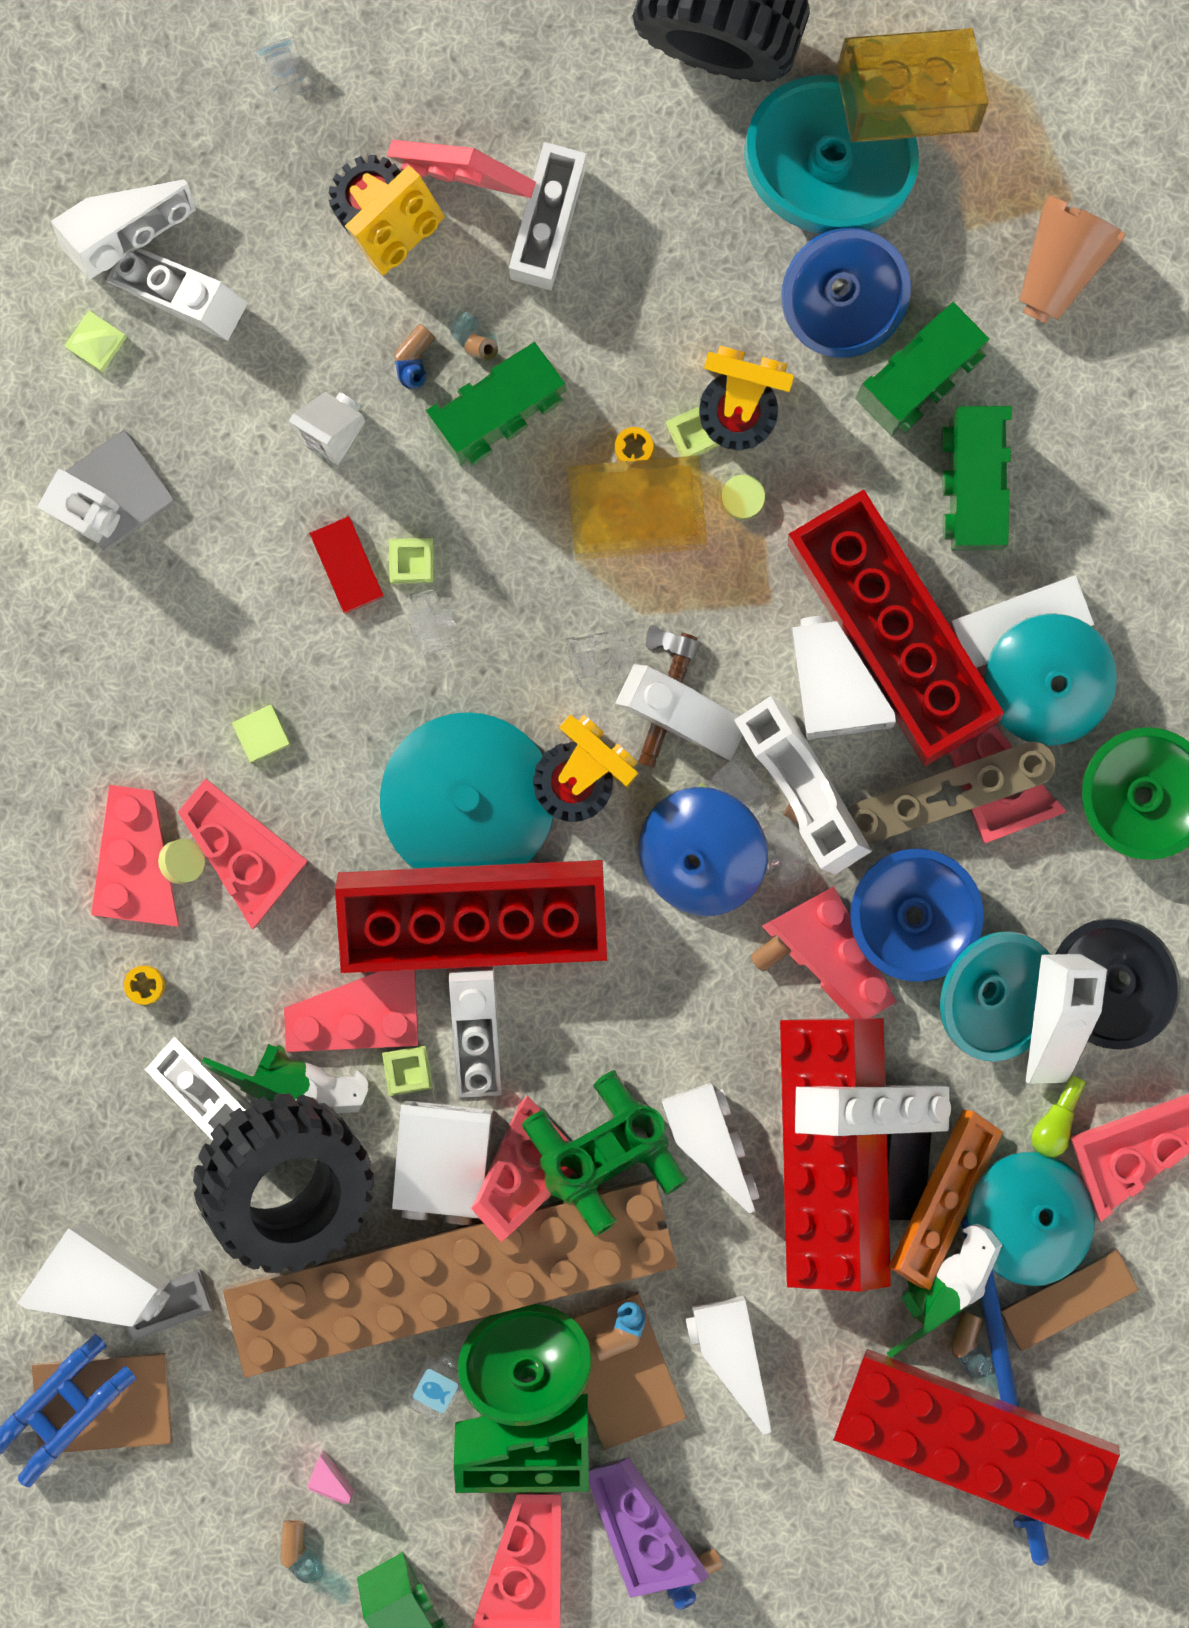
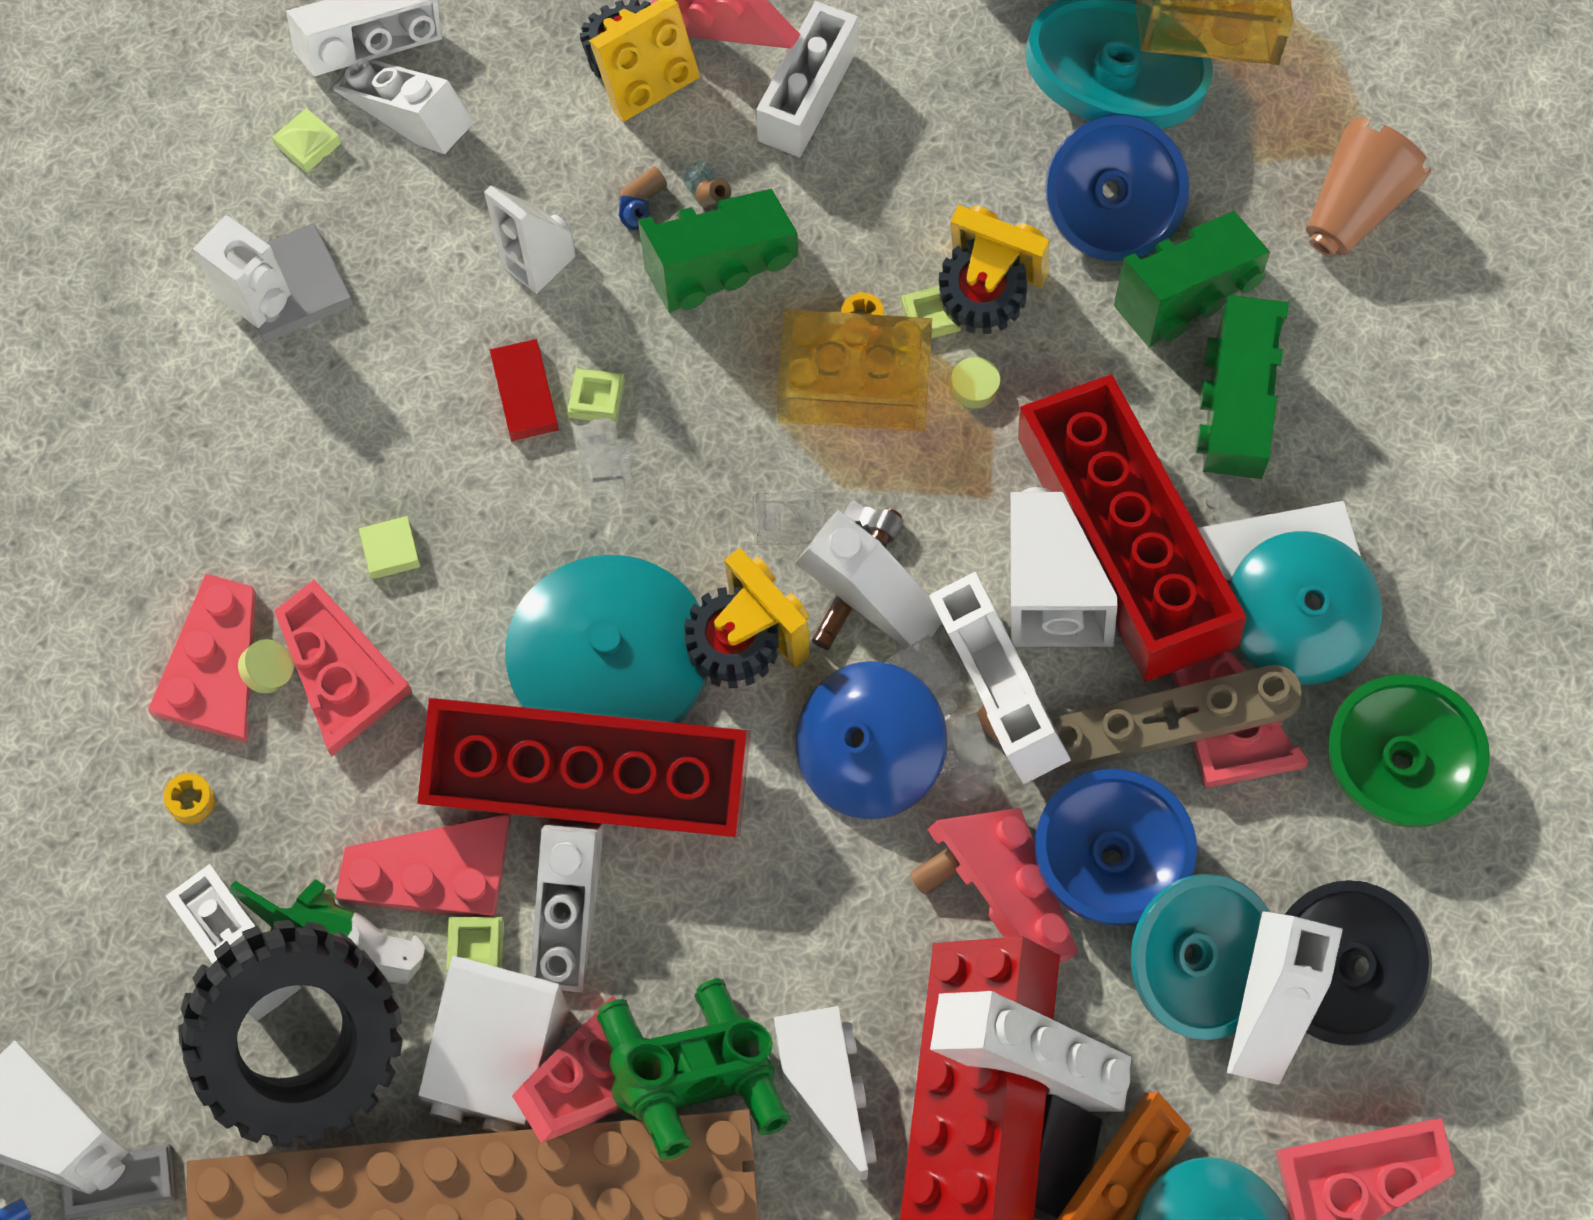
camera: 10 degrees right, 20 degrees down
(1053, 1131) = (1256, 1139): lime piece -> none

